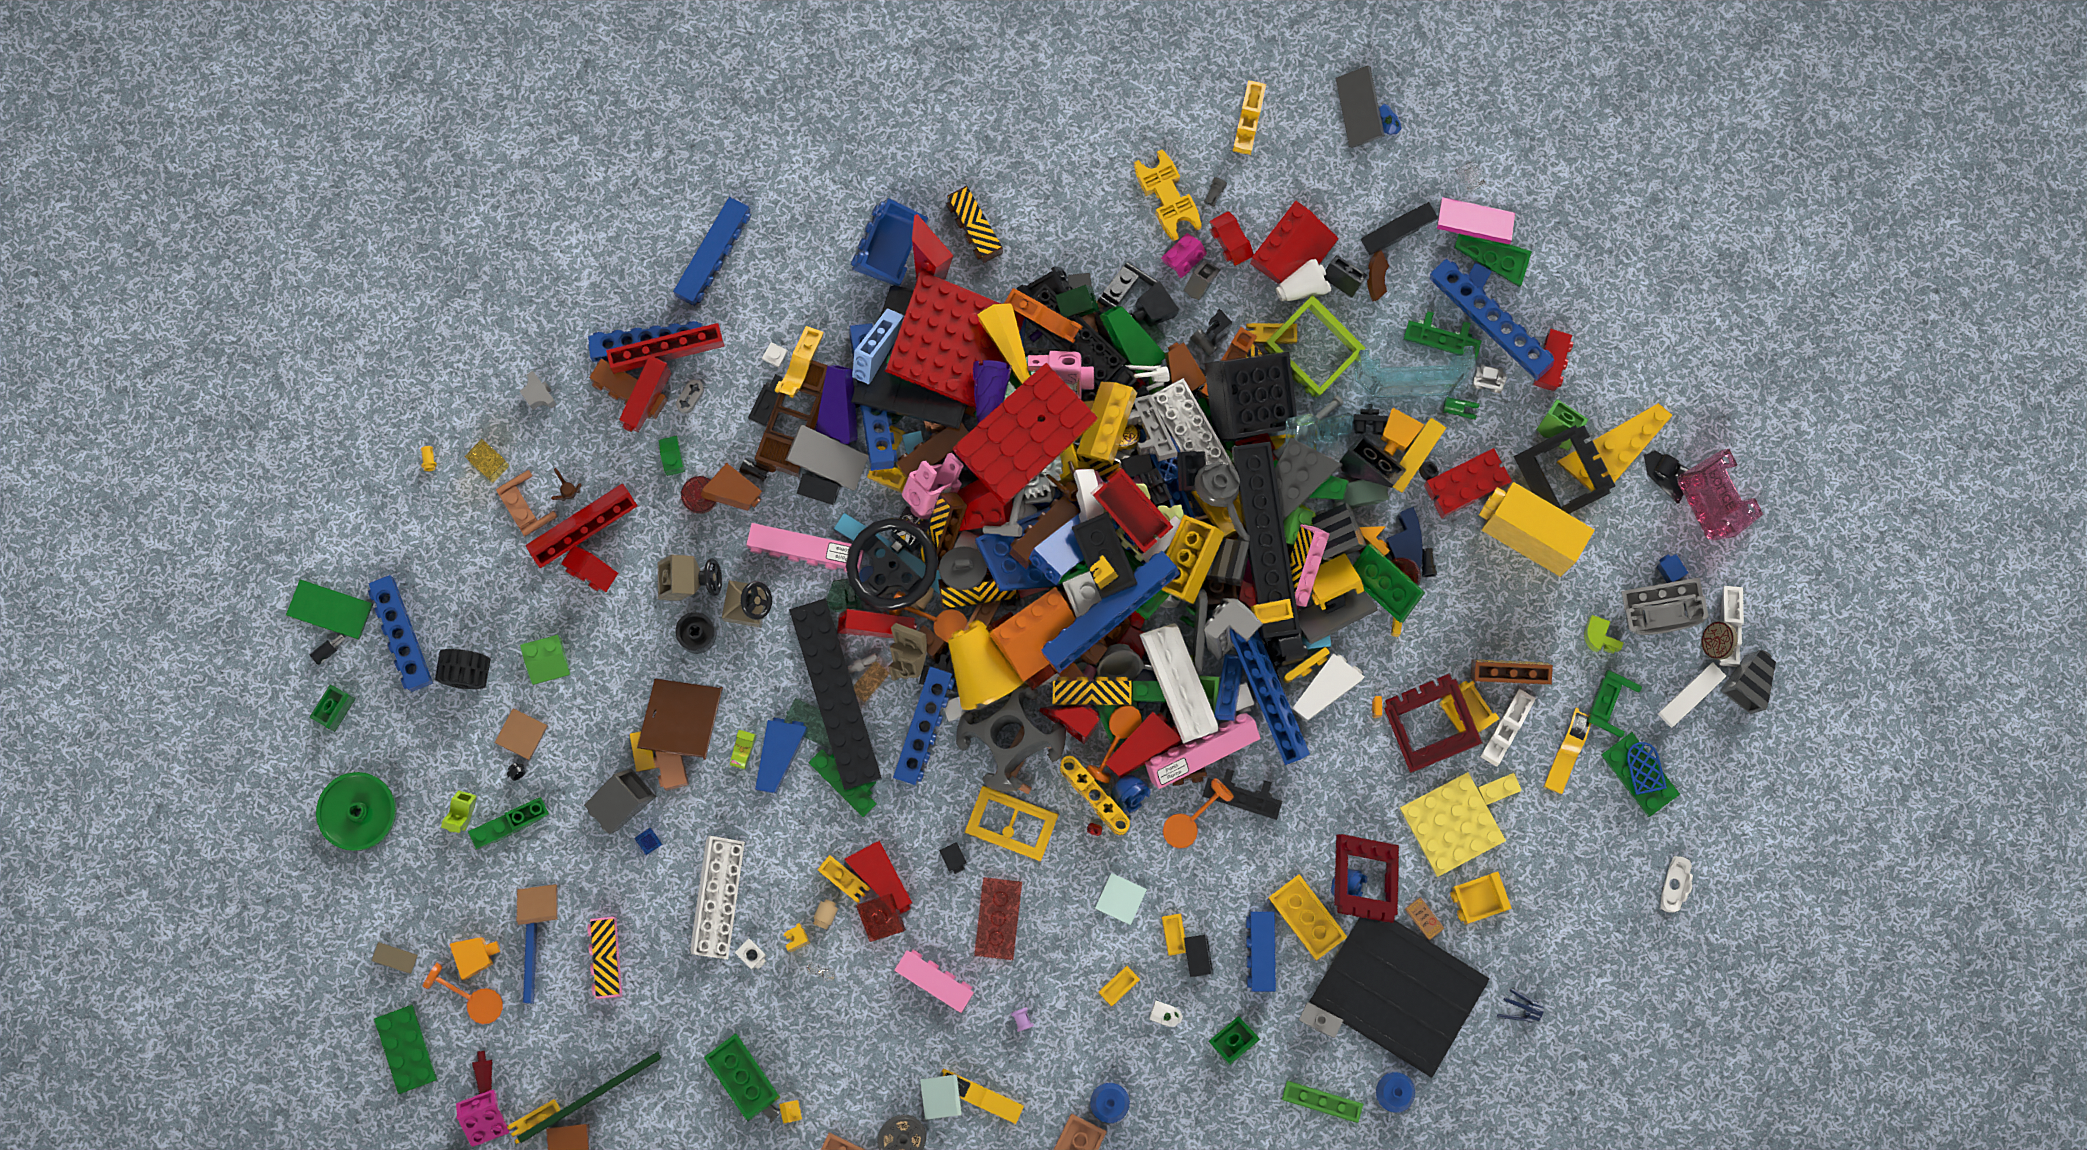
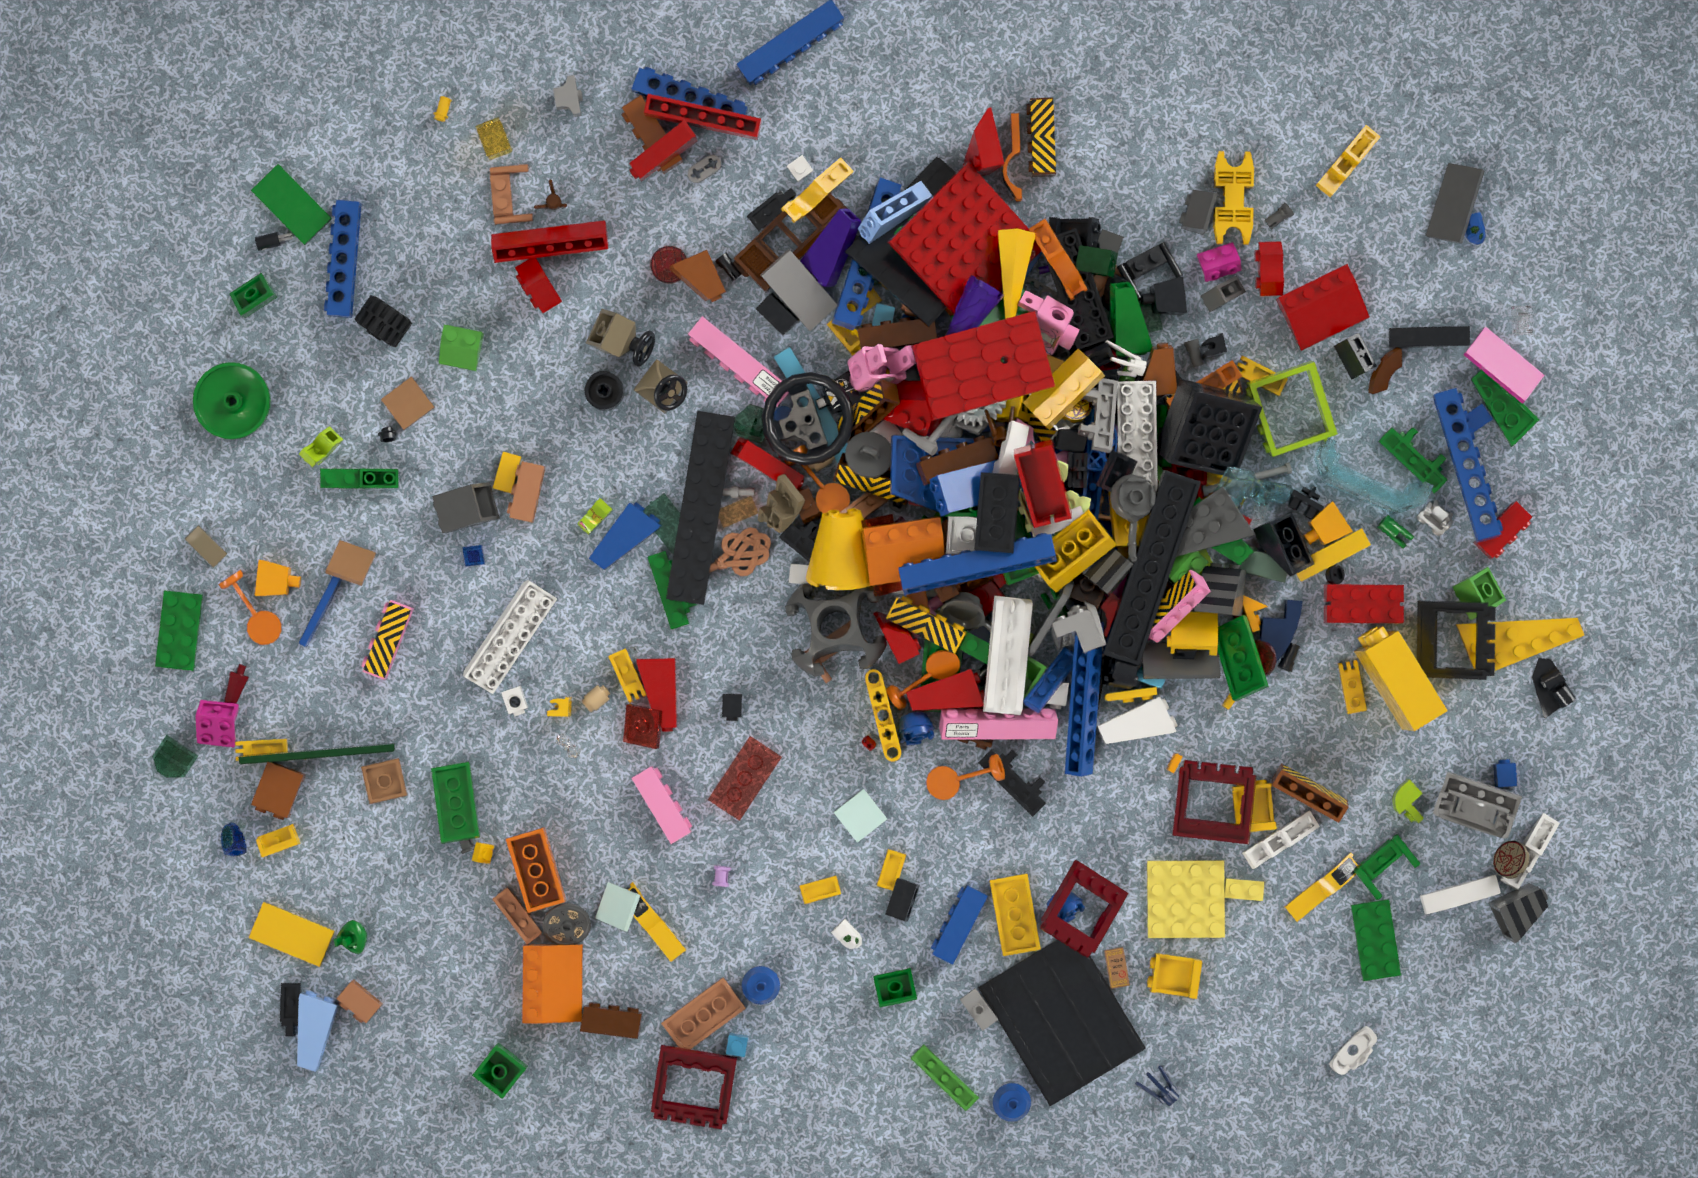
camera: 25 degrees right, 10 degrees up
(665, 1092) = (384, 781): none -> medium nougat tile
(671, 456) = (661, 215): green slope -> none
(681, 719) = (555, 462): reddish brown piece -> none
(847, 1101) = (536, 869): none -> orange brick
(886, 243) = (953, 114): blue windscreen -> none
(897, 700) = (758, 550): none -> nougat piece
(903, 771) = (727, 609): blue brick -> none
(974, 281) = (1015, 146): none -> orange piece
(1005, 840) = (791, 707): yellow door -> none
(1104, 574) = (989, 531): yellow hinge -> none
(1143, 219) = (1198, 211): none -> dark grey slope
(1273, 611) = (1122, 635): yellow tile -> none
(1304, 283) = (1313, 345): white cone -> none
(1497, 562) = (1352, 687): none -> yellow hinge
(1657, 760) = (1383, 933): blue window -> none
(1716, 498) = (1580, 732): clear pink windscreen -> none

